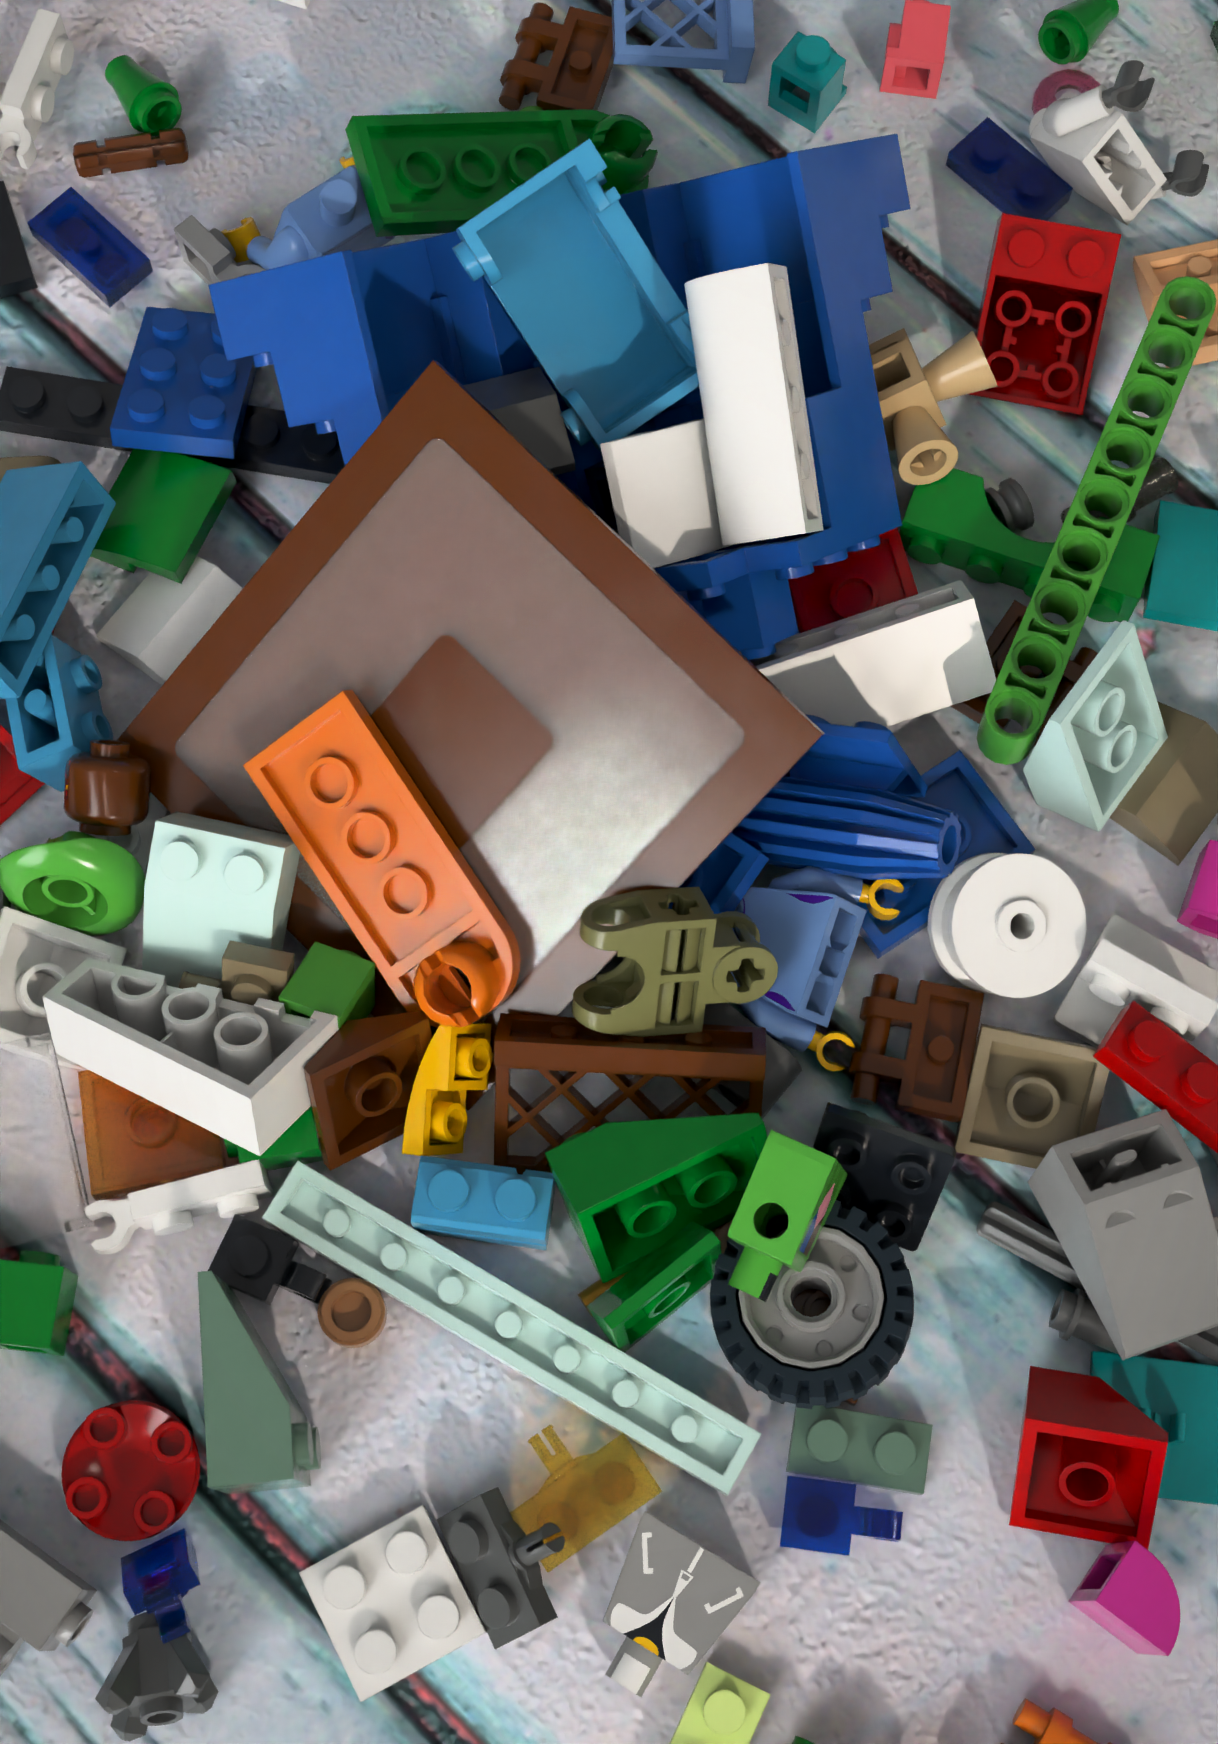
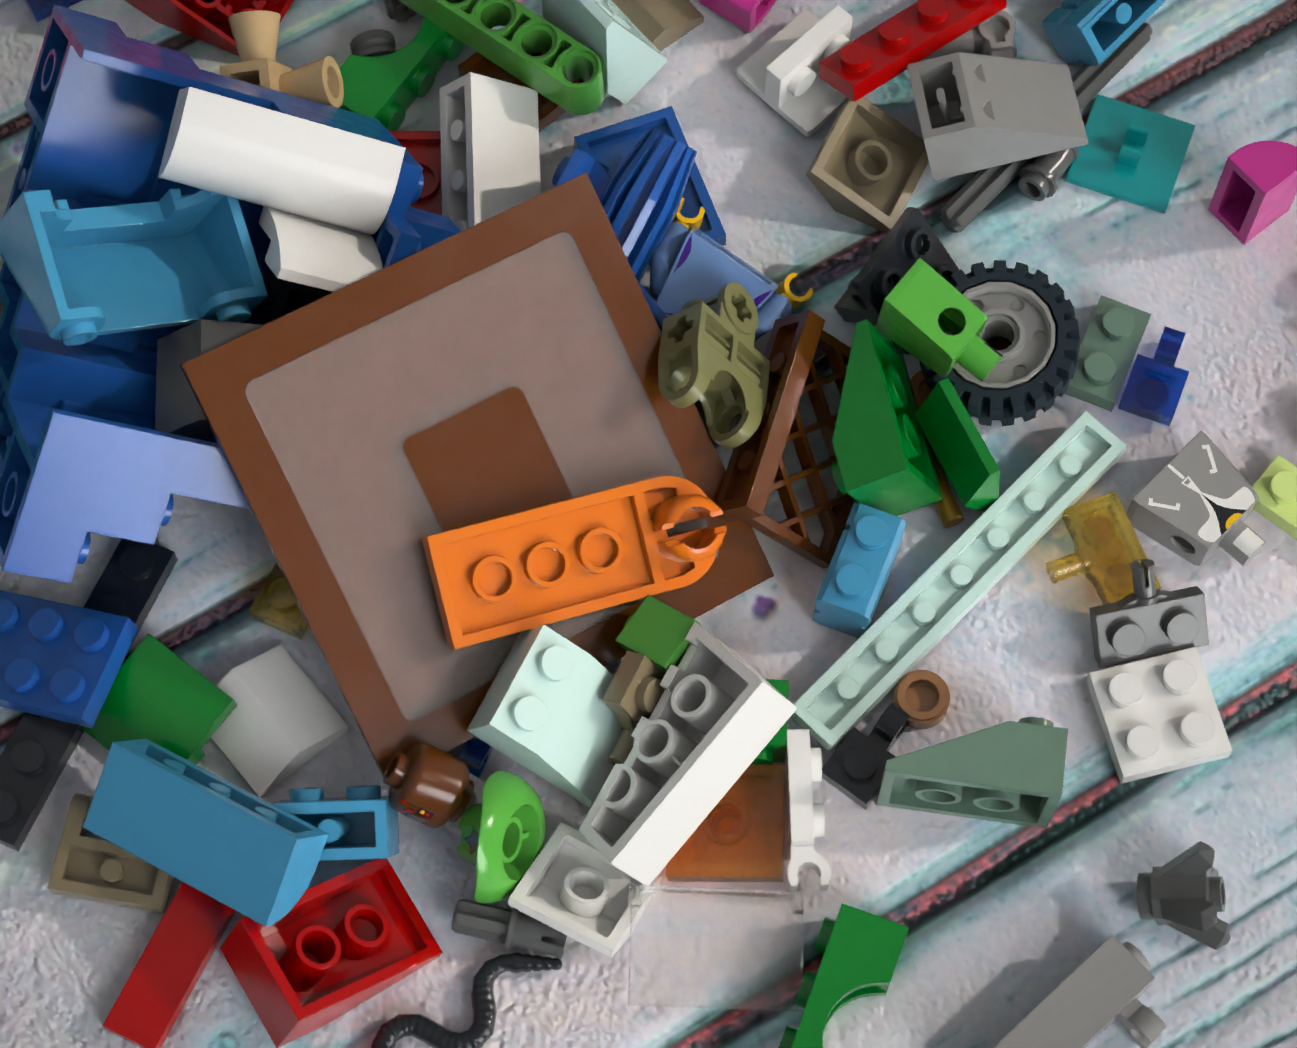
camera: 75 degrees left, 5 degrees down
(130, 1470) = (1015, 895): red dish -> none
(159, 1579) = (1108, 876): clear blue plate -> none
(365, 1083) = (745, 621): reddish brown slope -> none
(436, 1112) = (750, 562): yellow slope -> none
(937, 1051) = (813, 218): reddish brown plate -> none
(1007, 924) = (737, 136): white wheel -> none
(1086, 1461) = (1150, 195): red slope -> none

